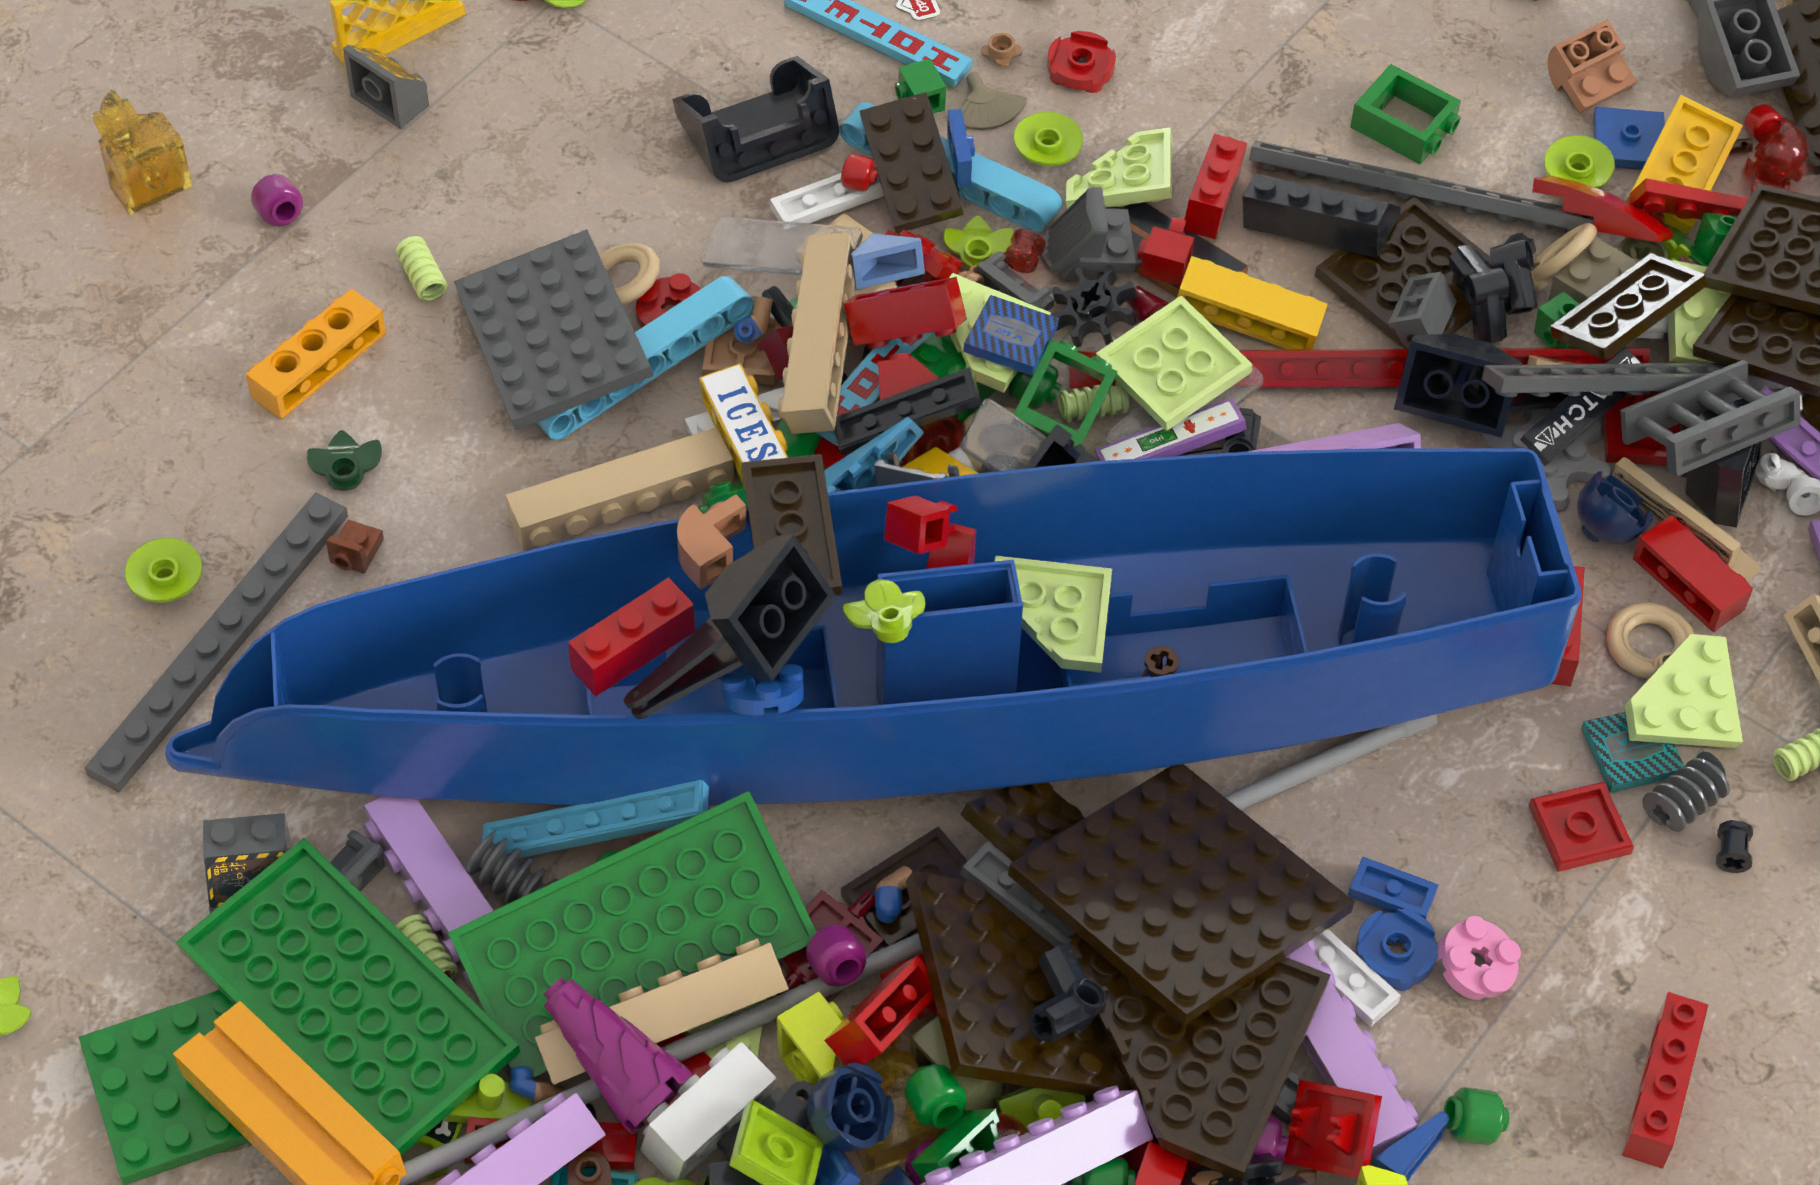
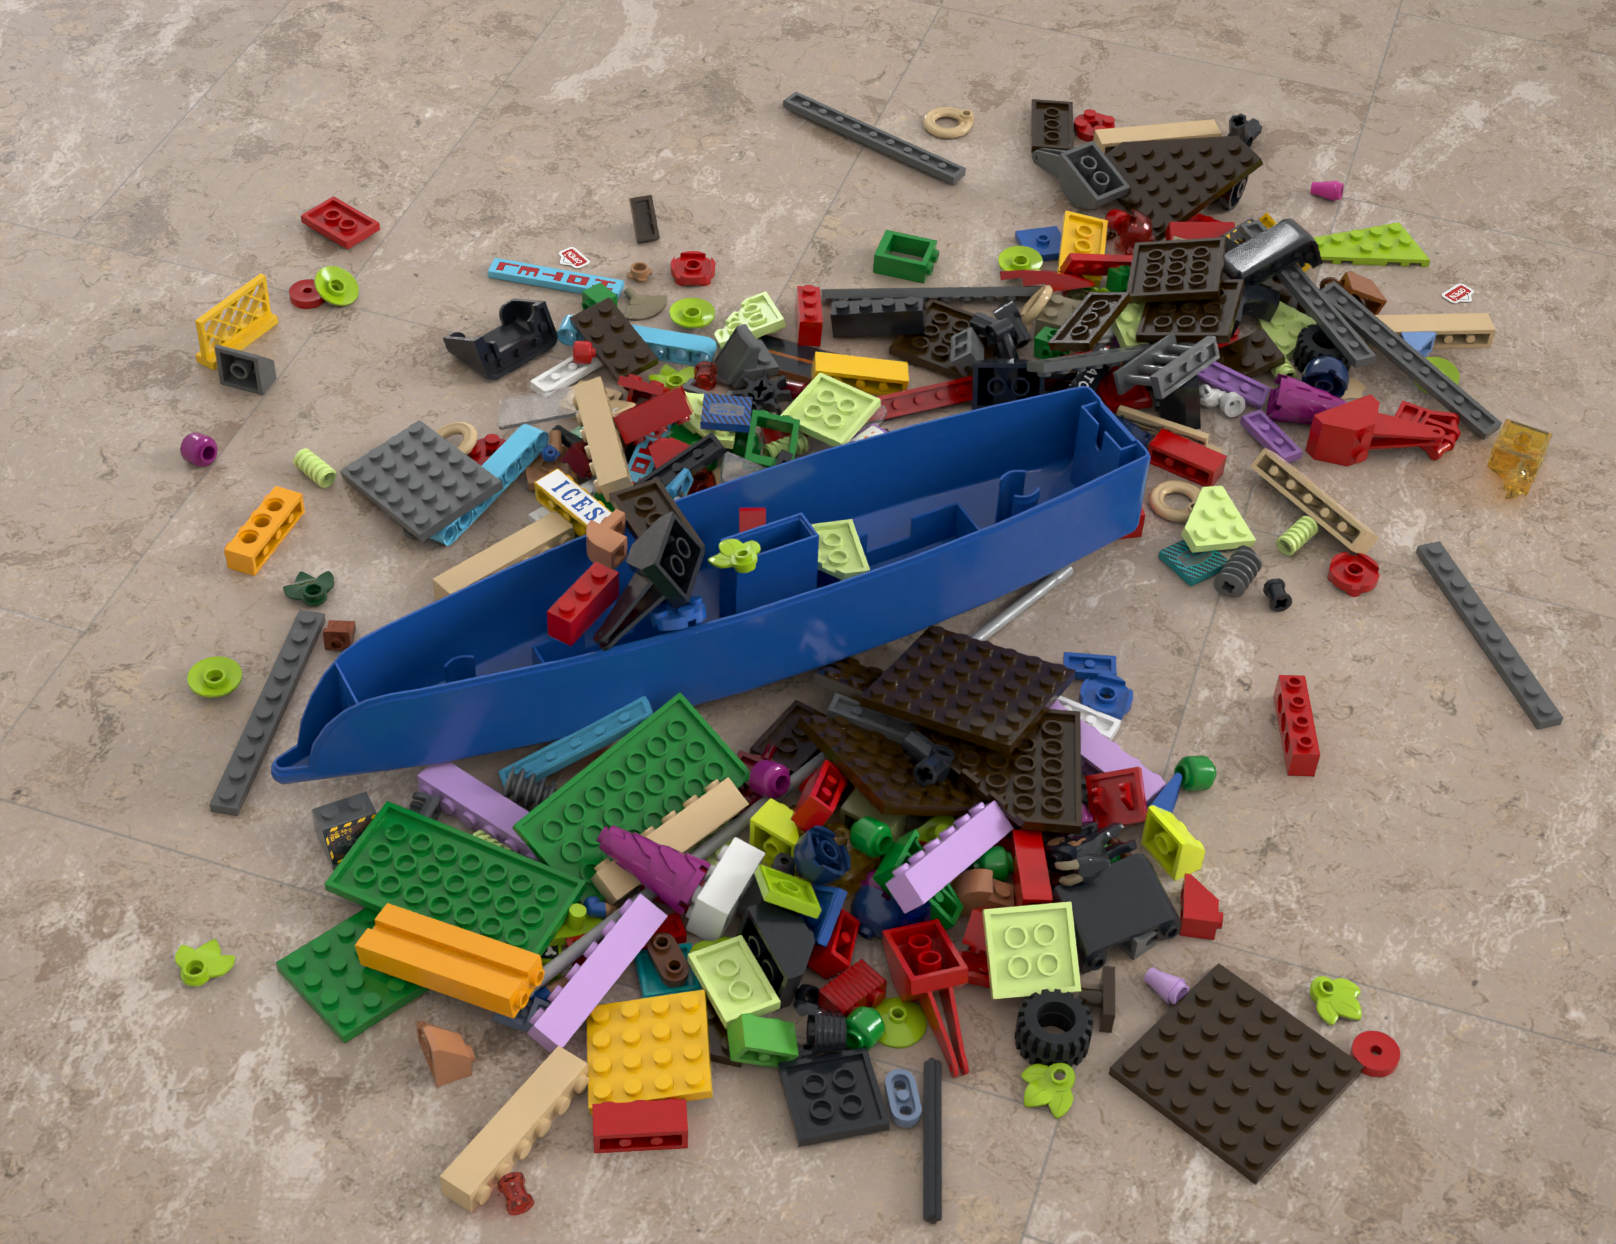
camera: 20 degrees left, 10 degrees down
(140, 154) = (96, 437): clear yellow brick -> none
(886, 259) = (628, 391): medium blue slope -> none
(889, 895) = (785, 742): blue arm -> none
(918, 524) = (733, 506): red brick -> none
(960, 146) = (642, 323): blue plate -> none
(1166, 253) = (796, 357): red brick -> none
(1493, 945) = (1150, 680): bright pink plate -> none
(1580, 826) = (1182, 607): red tile -> none
(1590, 66) = (1003, 209): nougat brick -> none

